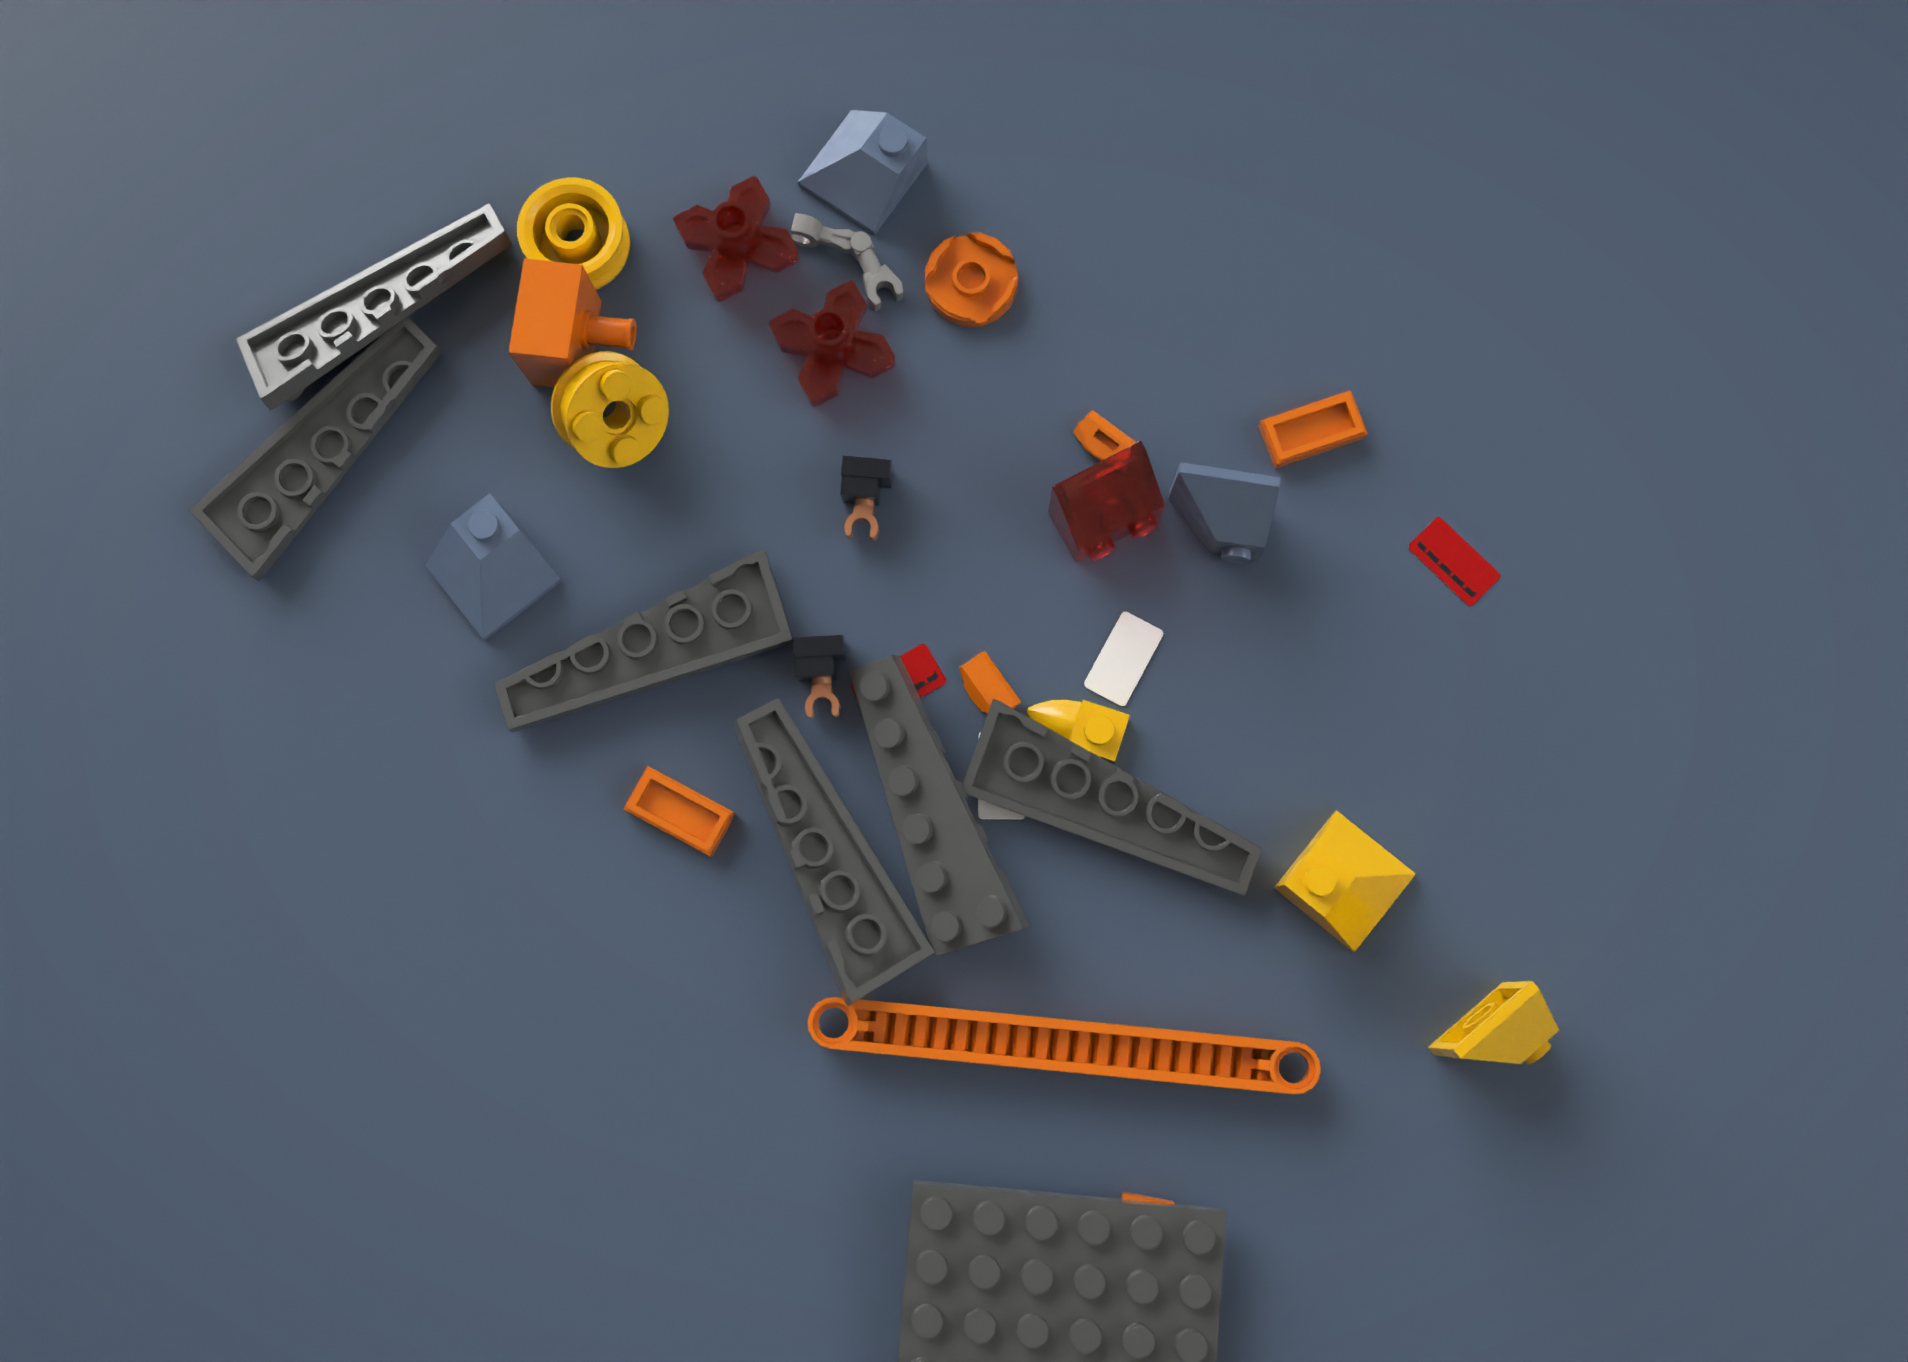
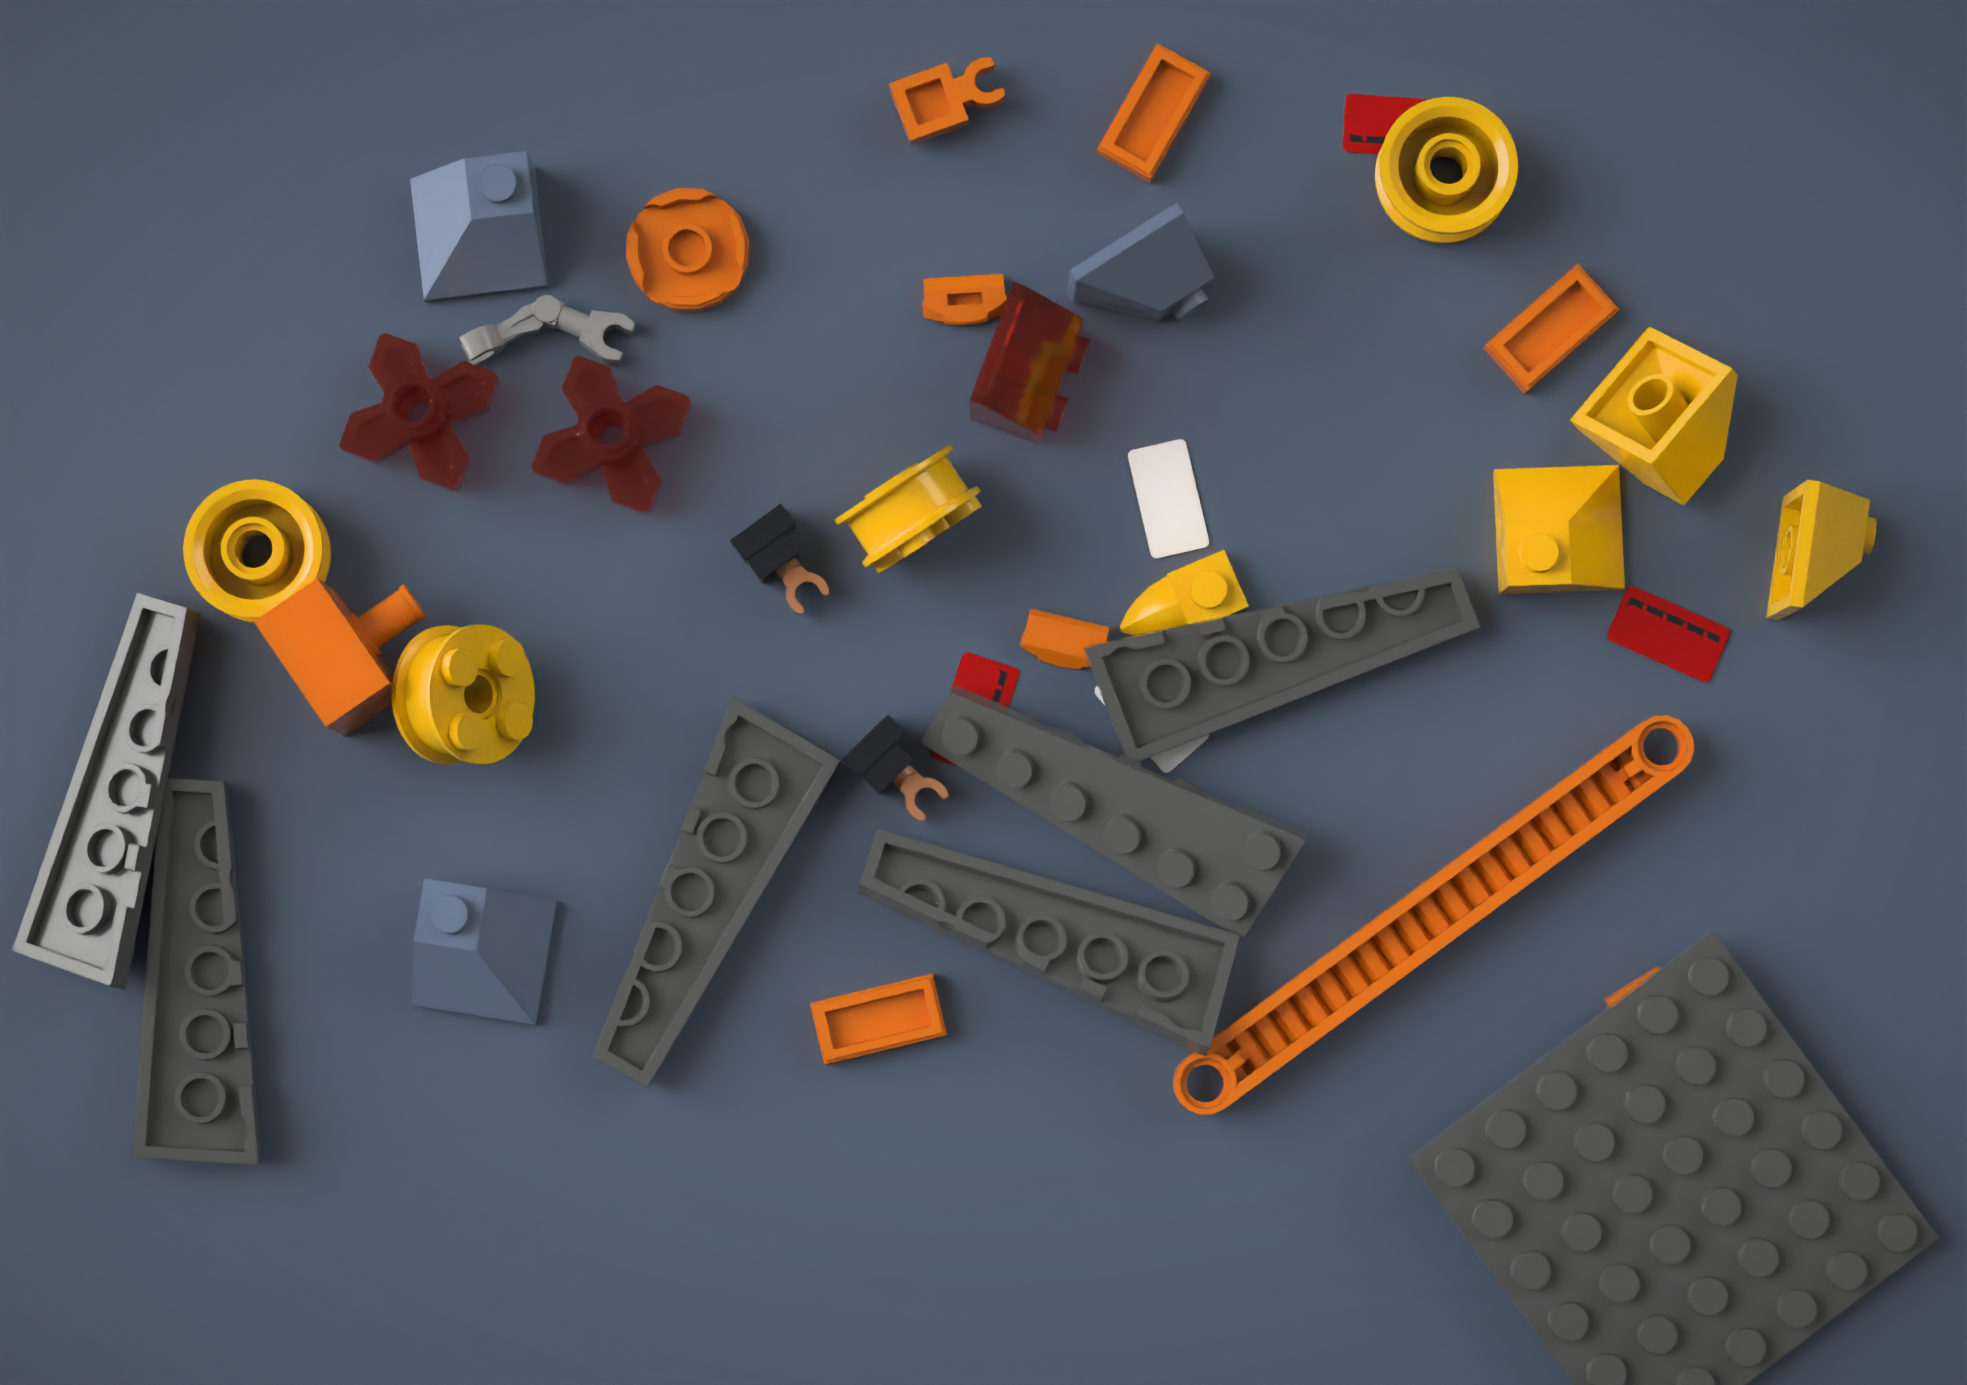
camera: 45 degrees left, 5 degrees up
(962, 524) = (910, 510): none -> yellow wheel
(1189, 313) = (936, 103): none -> orange plate
(1357, 1003) = (1668, 634): none -> red sticker
(1444, 756) = (1551, 328): none -> orange tile
(1470, 866) = (1662, 414): none -> yellow slope
(1488, 588) = (1452, 130): none -> yellow wheel

